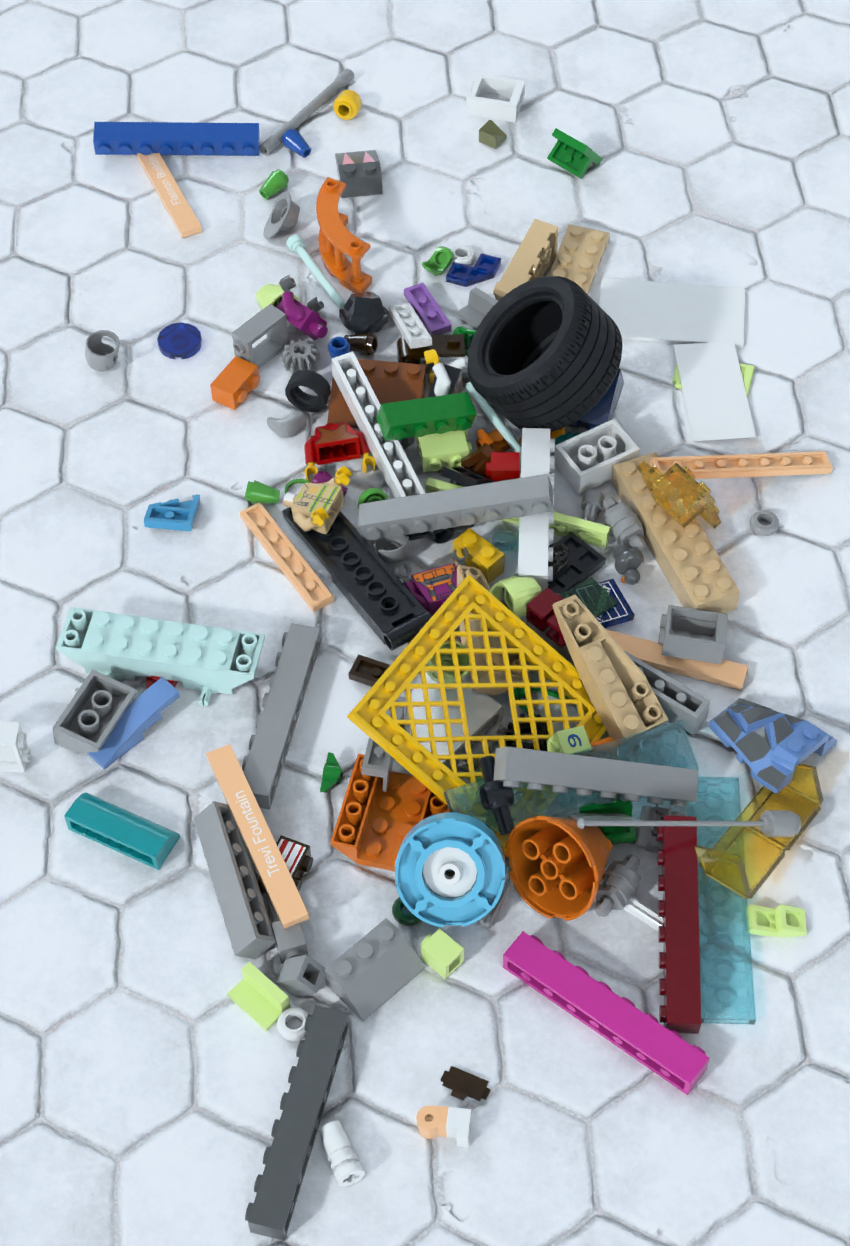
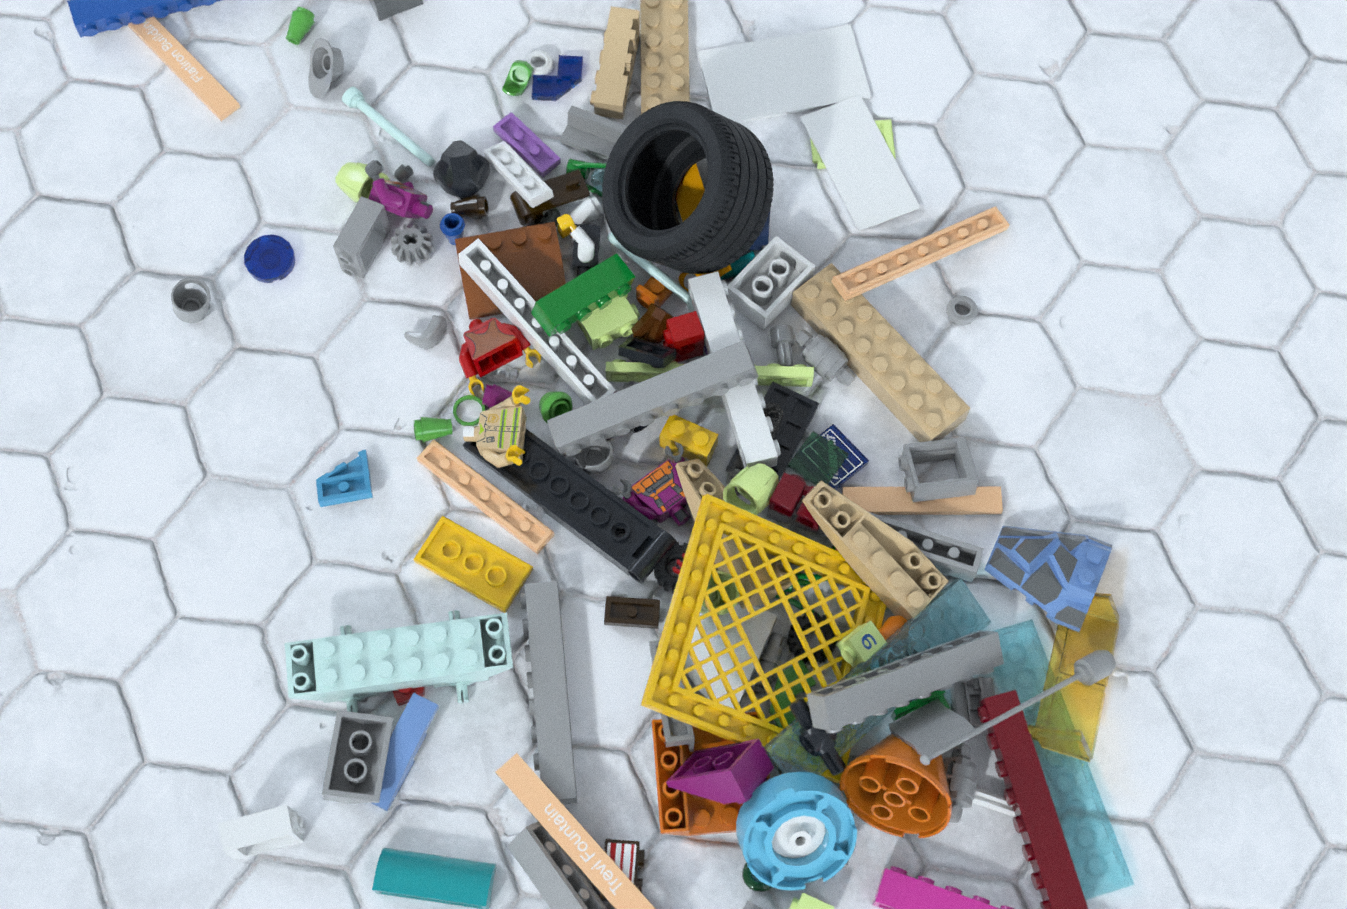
camera: 20 degrees left, 15 degrees up
(235, 383) = (353, 297): orange brick -> none
(254, 602) = (473, 564): none -> yellow tile
(312, 381) = (437, 288): black tyre -> none
(331, 773) = (627, 743): green piece -> none
(337, 240) = (402, 95): orange fence -> none
(405, 801) = (724, 772): none -> magenta slope
(505, 540) = (709, 411): clear light blue cone -> none
(627, 562) = (840, 399): dark grey animal -> none
(680, 494) = (880, 316): clear yellow bracket -> none
(778, 922) = (1119, 767): yellowish green slope -> none

